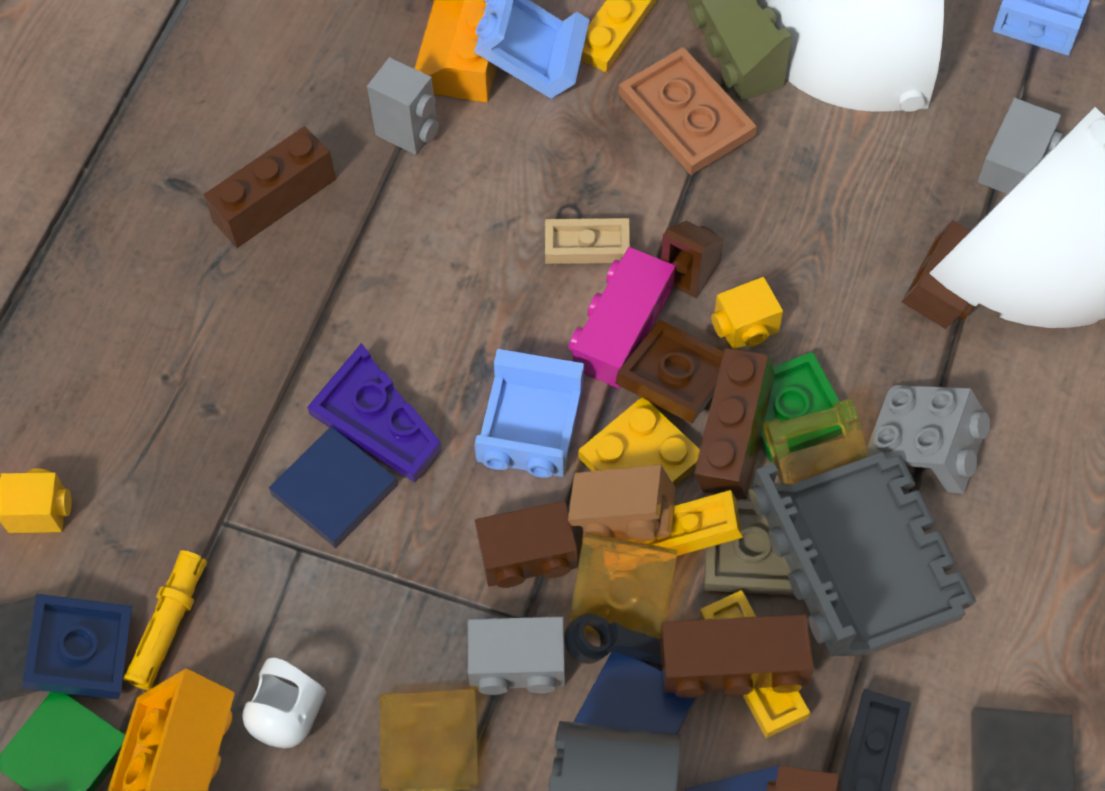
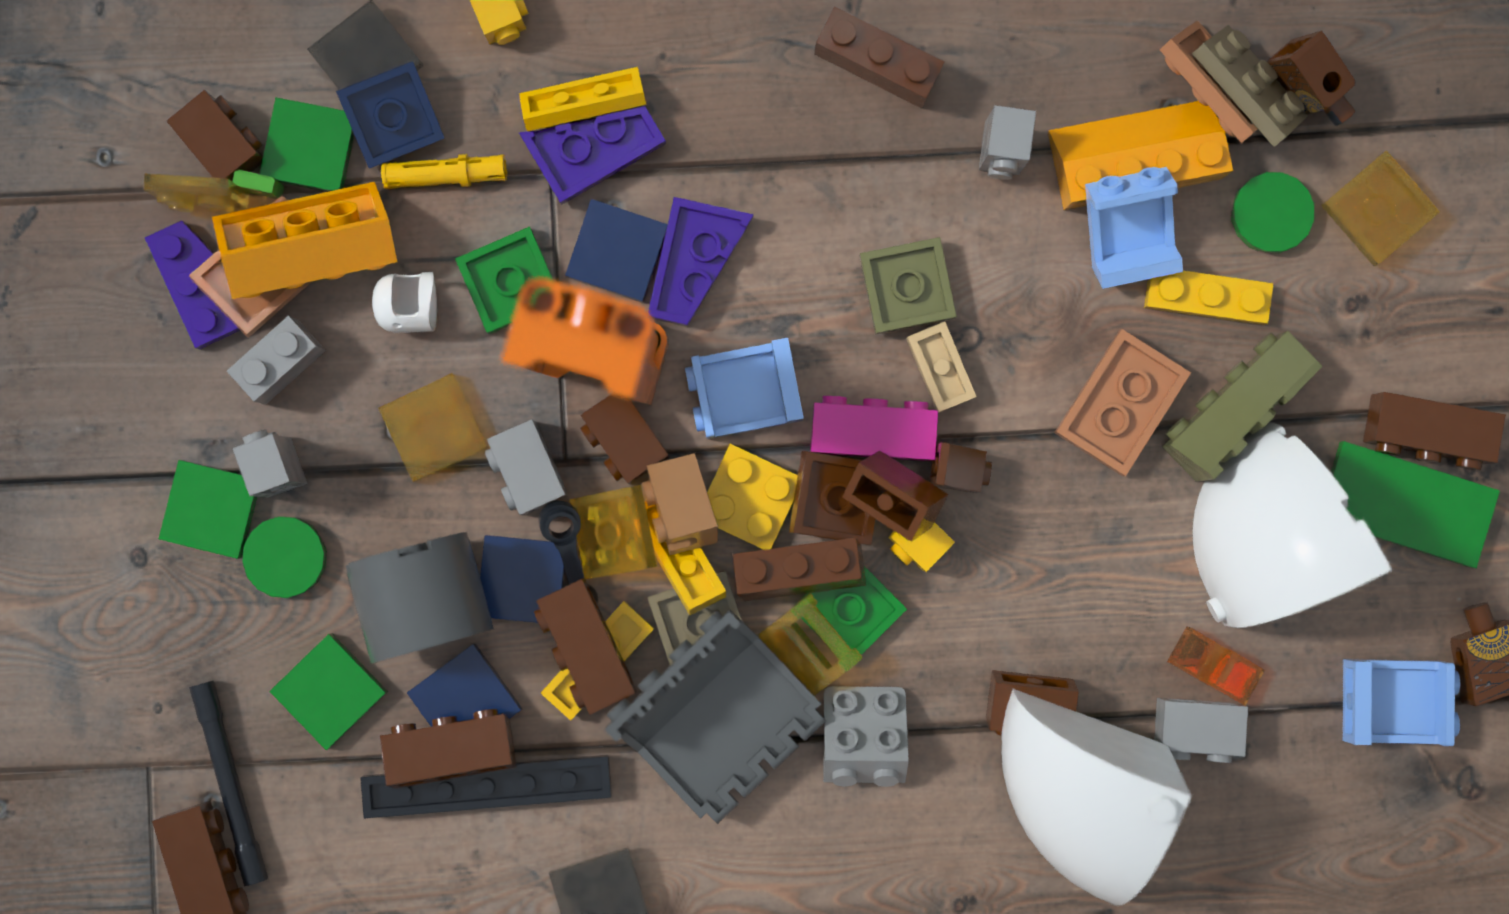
camera: 60 degrees right, 25 degrees up
(165, 457) = (582, 99): none -> yellow plate
(221, 471) = (592, 150): none -> dark purple wing
(310, 602) = (499, 273): none -> green tile
(423, 460) = (588, 336): none -> orange piece
(495, 241) = (907, 285): none -> olive plate
(698, 298) = (895, 495): none -> reddish brown brick
(965, 124) = (1216, 666): none -> clear orange slope

